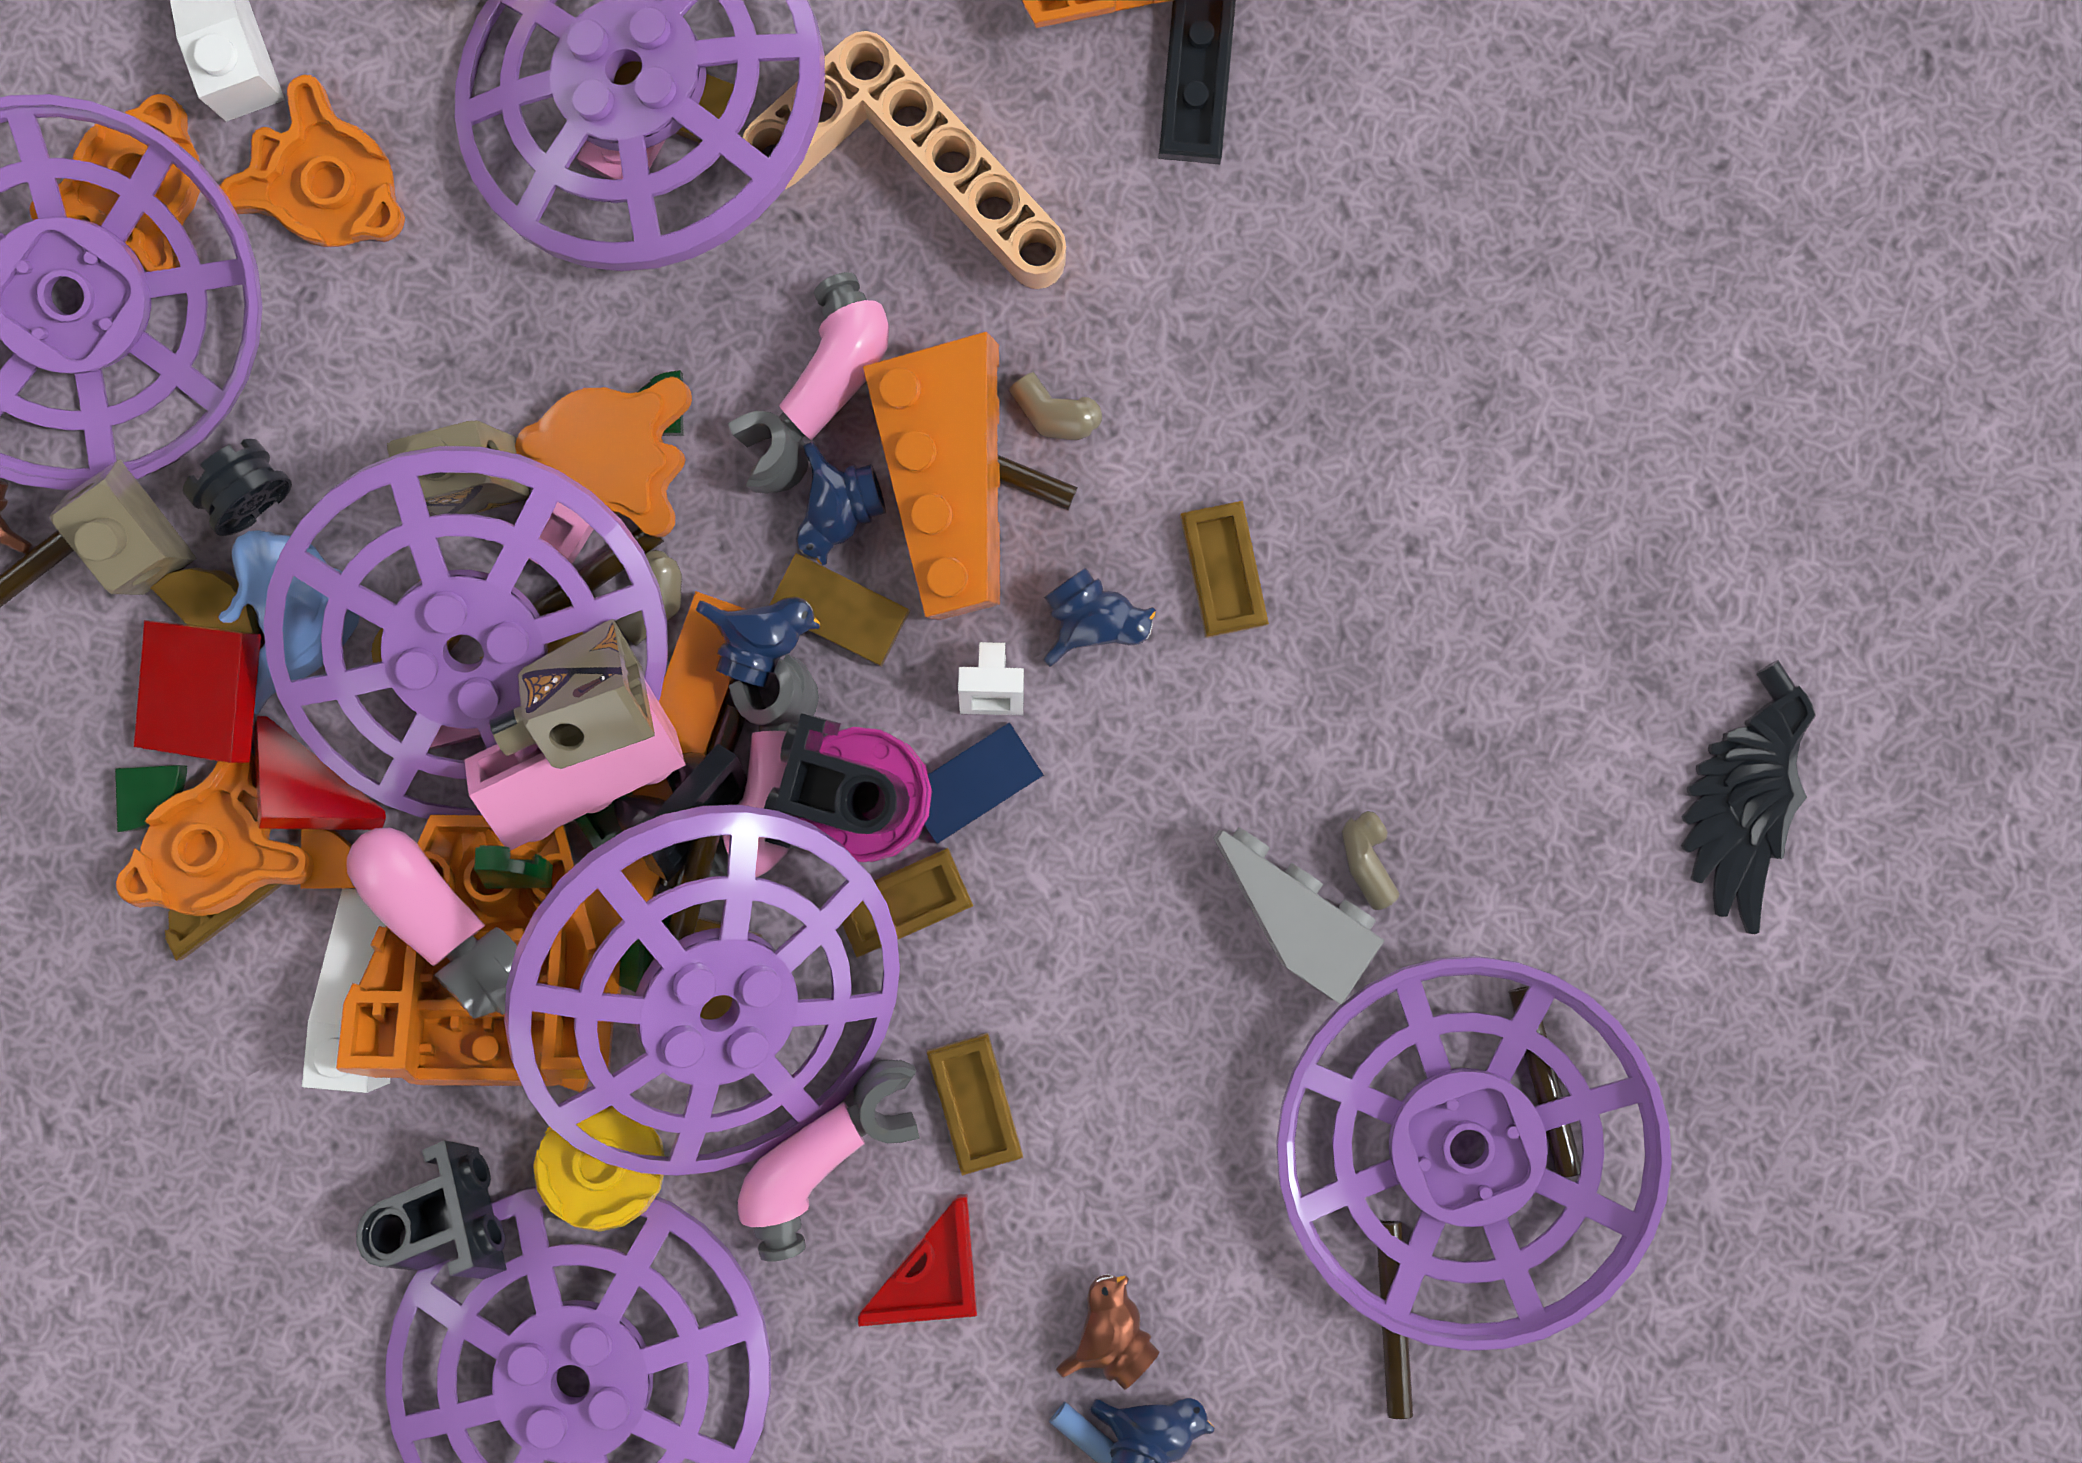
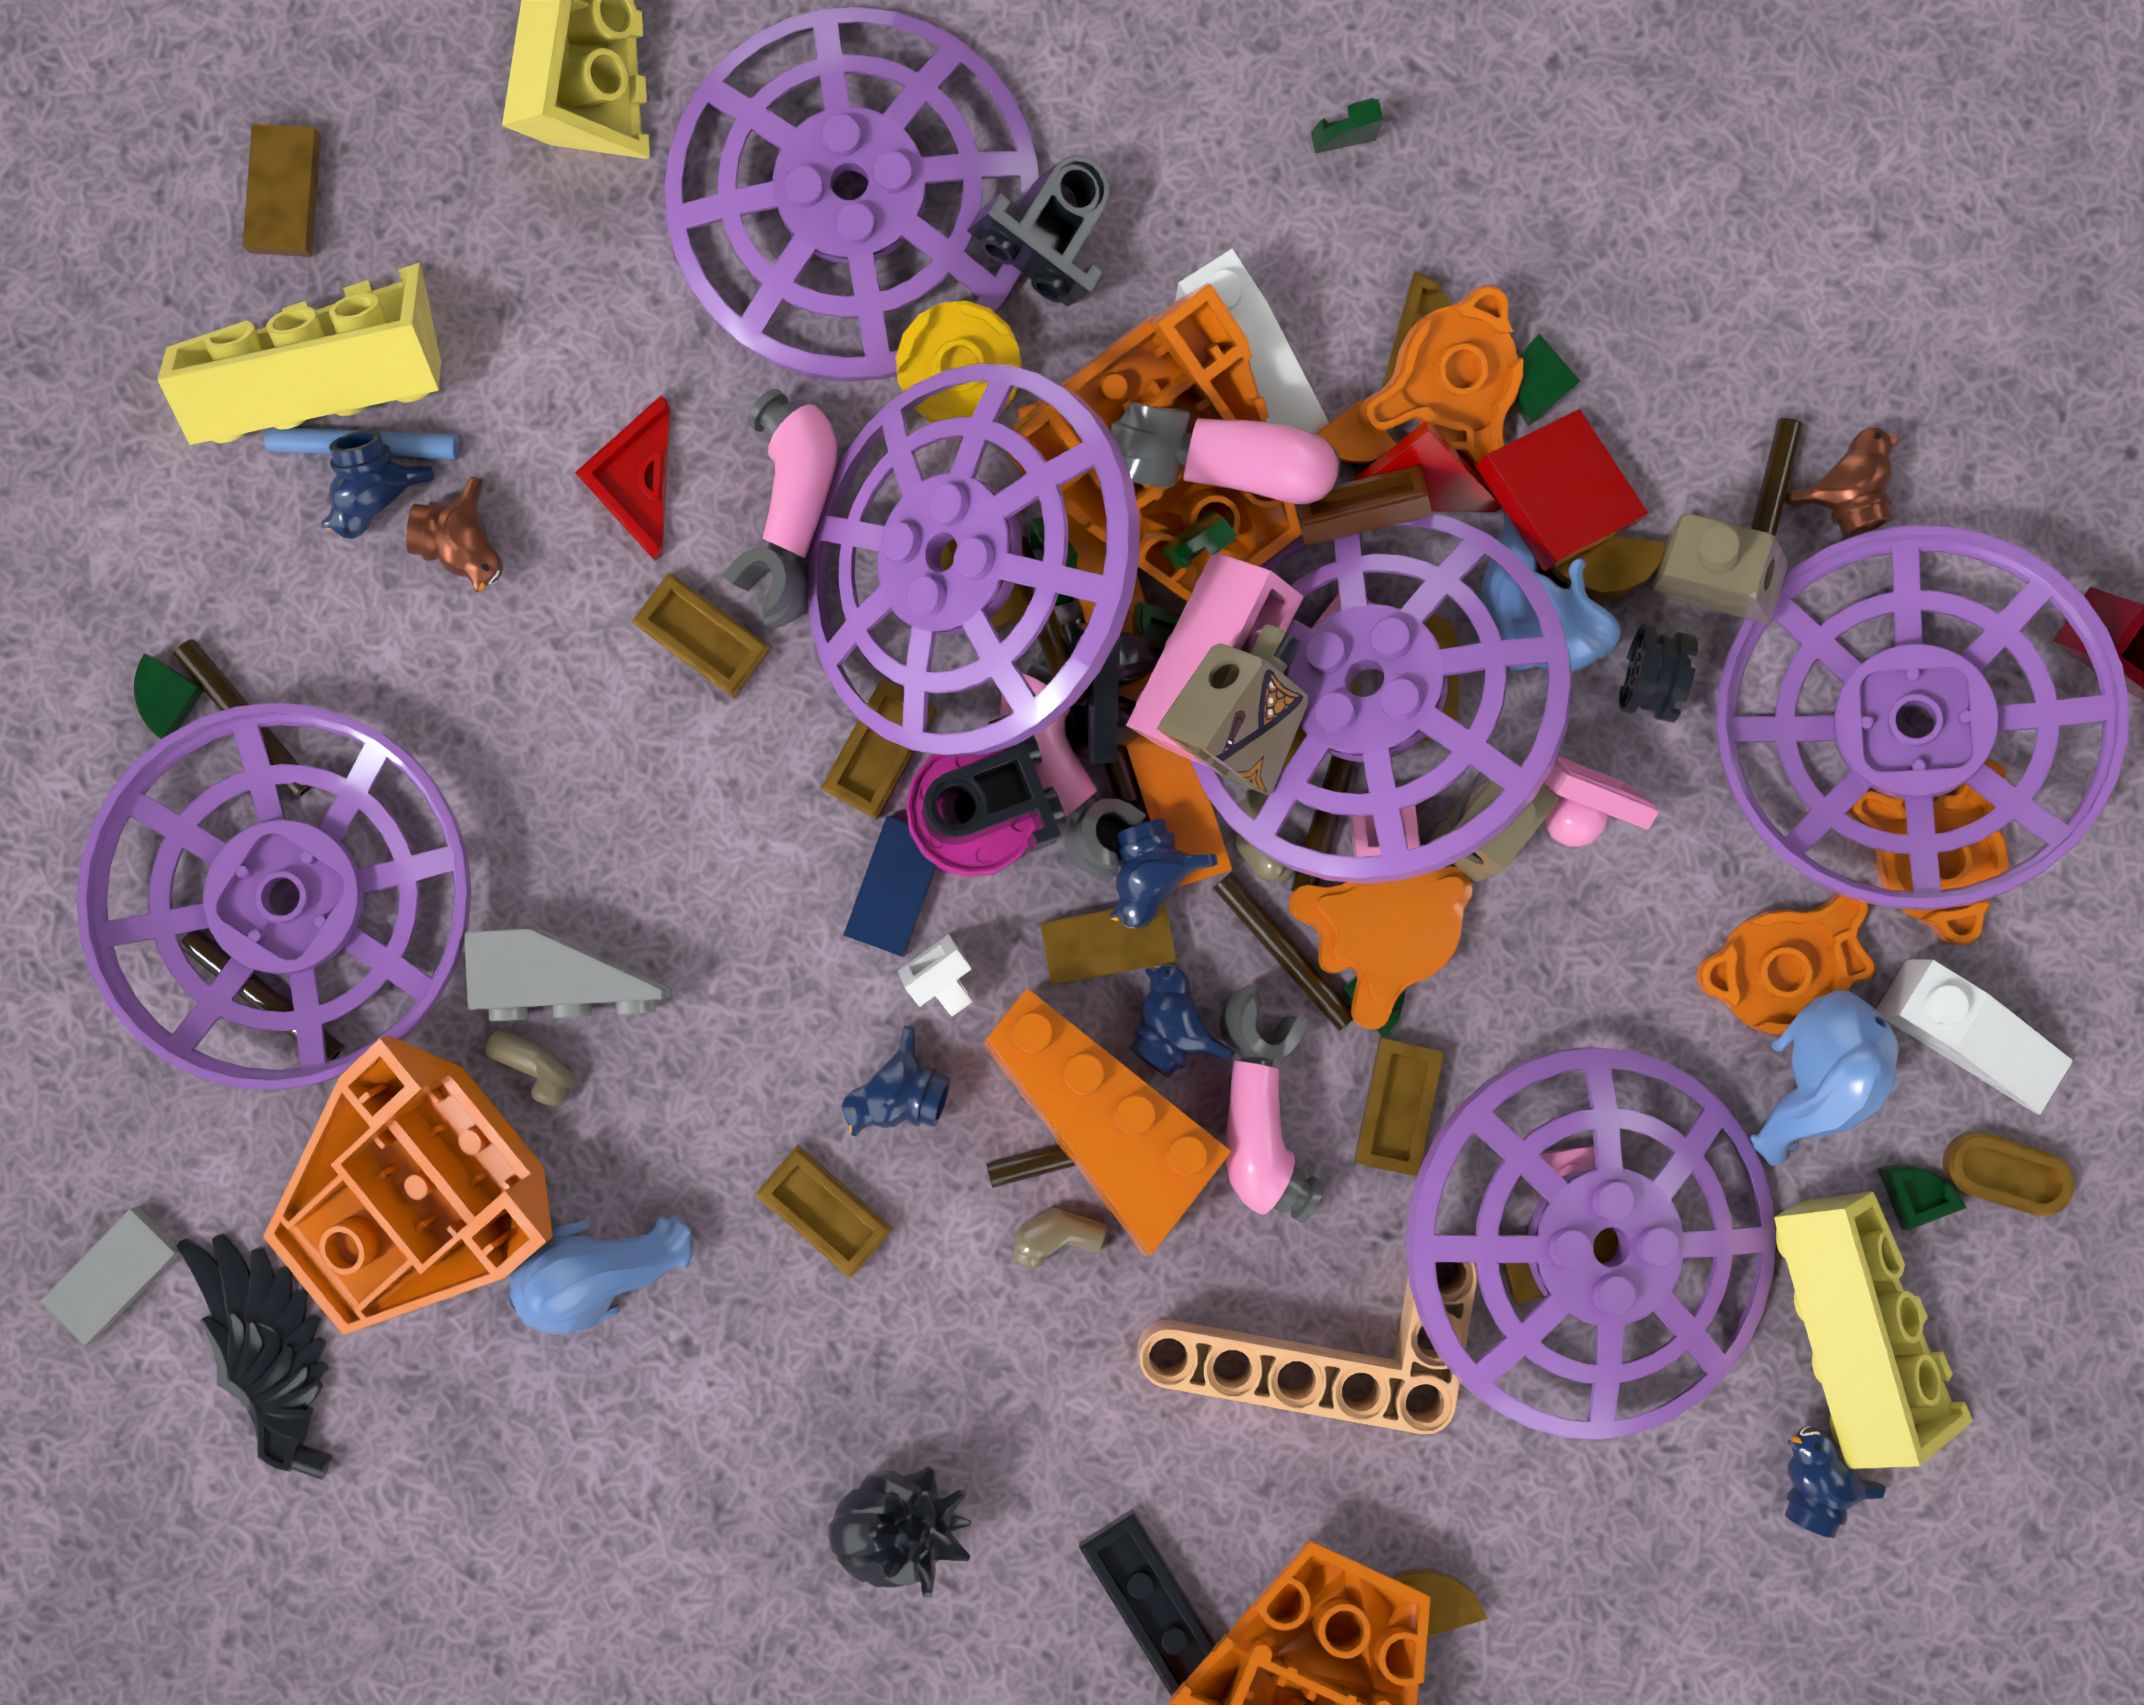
camera: 150 degrees right, 0 degrees up
(123, 1109) = (1360, 127): none -> dark green tile
(339, 68) = (1841, 1071): none -> medium blue piece
(358, 795) = (1366, 505): none -> reddish brown tile
(369, 426) = (1588, 800): none -> bright pink tile
(705, 497) = (1284, 950): none -> dark brown piece
(710, 307) = (1398, 1107): none -> pearl gold tile
(1351, 275) = (897, 1530): none -> black hair
(1446, 1387) = (163, 696): none -> dark green tile
(1461, 663) = (576, 1278): none -> medium blue piece
(1541, 832) = (407, 1191): none -> orange wedge
(1828, 948) = (111, 1275): none -> light grey tile

